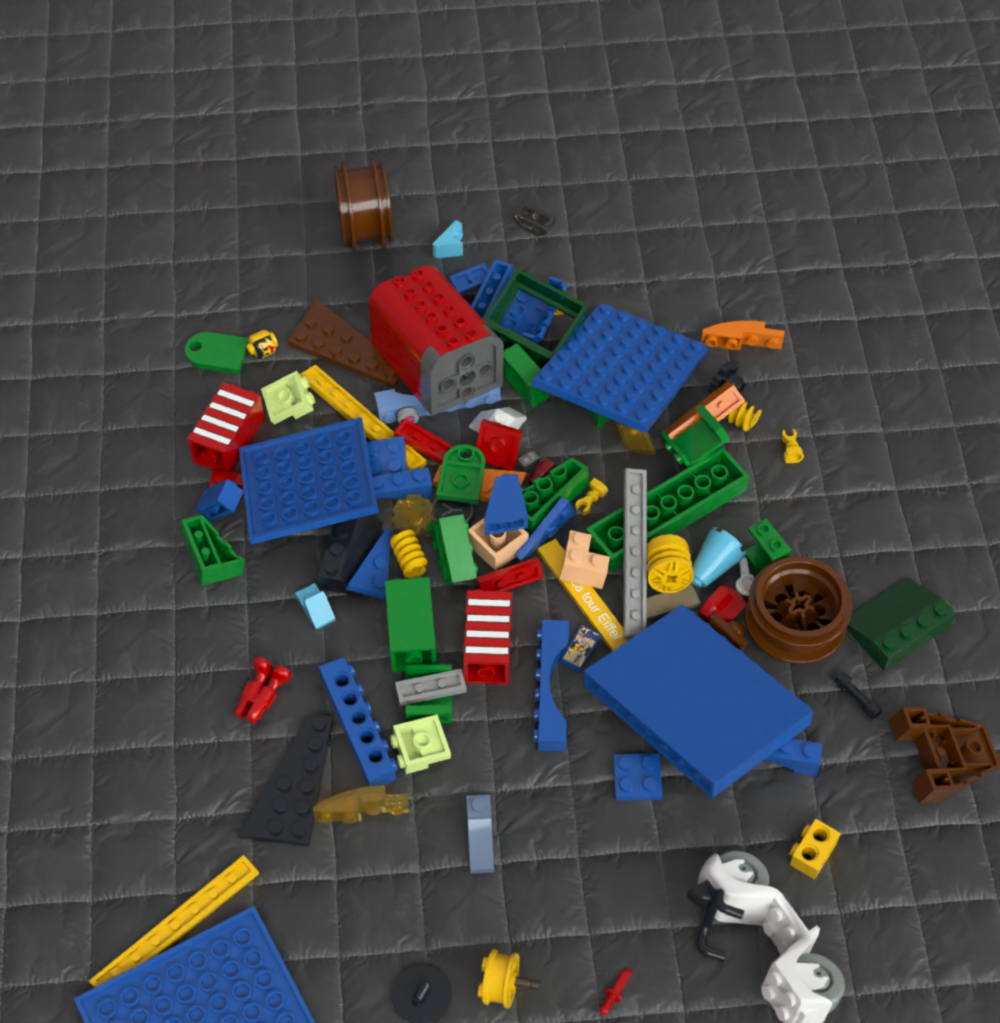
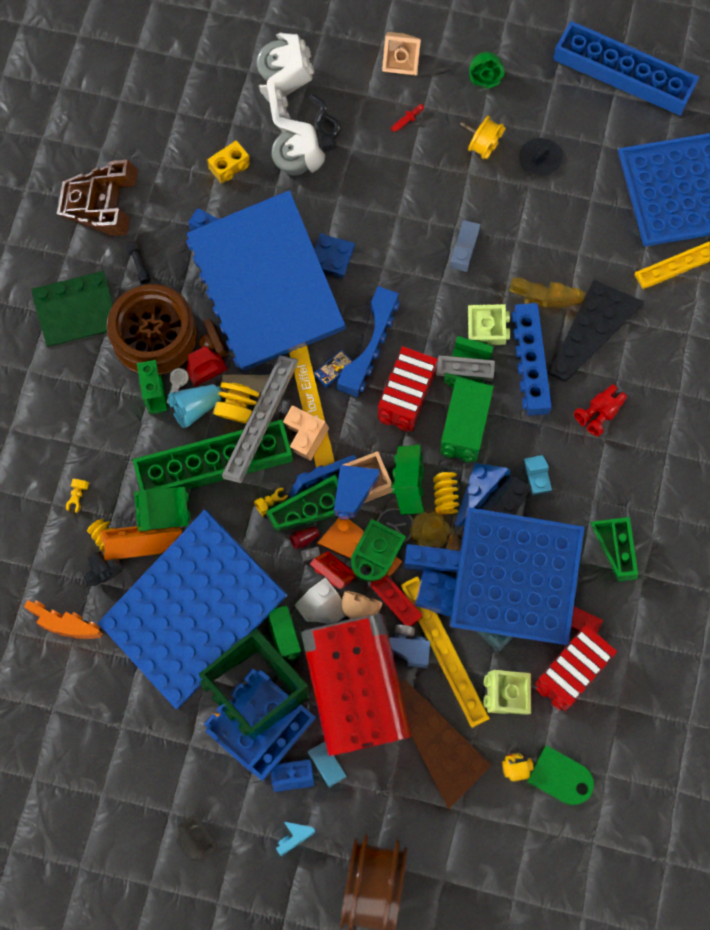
camera: 160 degrees left, 15 degrees up
(219, 500) = (598, 591): blue brick -> none
(459, 425) = (357, 605): none -> light nougat cylinder
(511, 576) = (369, 445): red plate -> none

